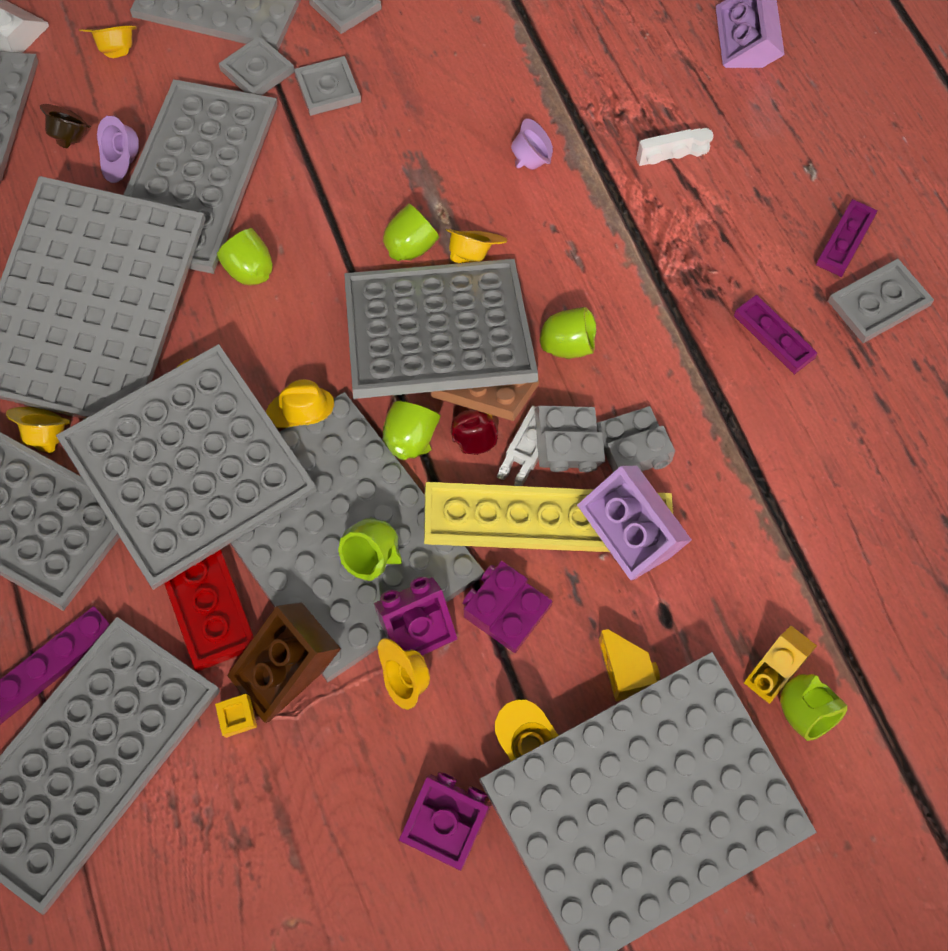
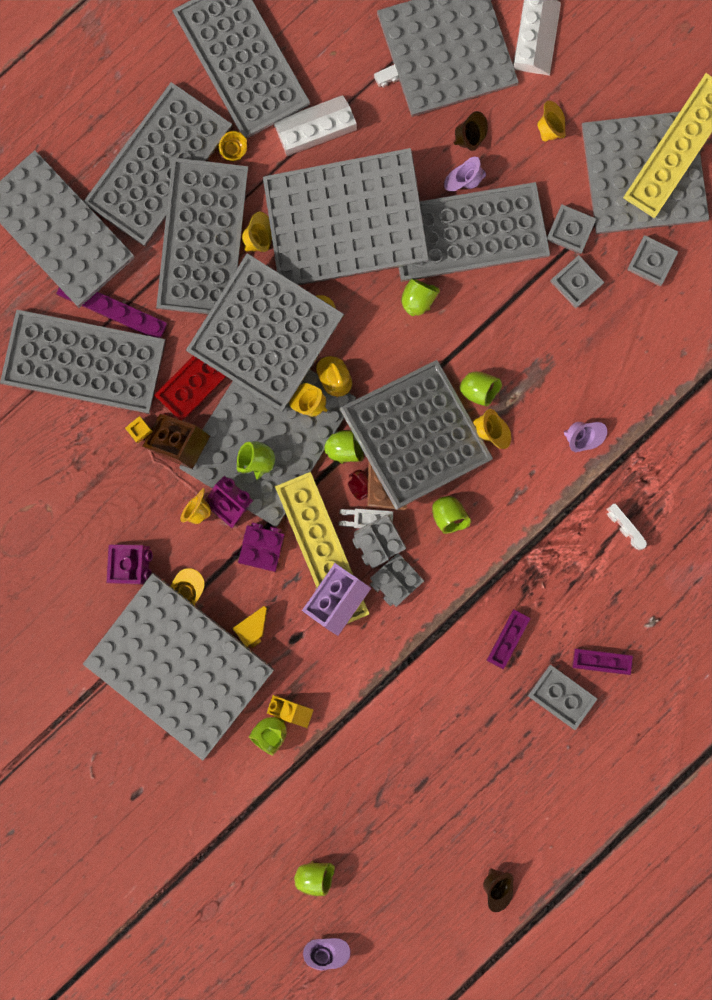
camera: 70 degrees right, 20 degrees up
(319, 441) = (308, 400): none -> yellow piece

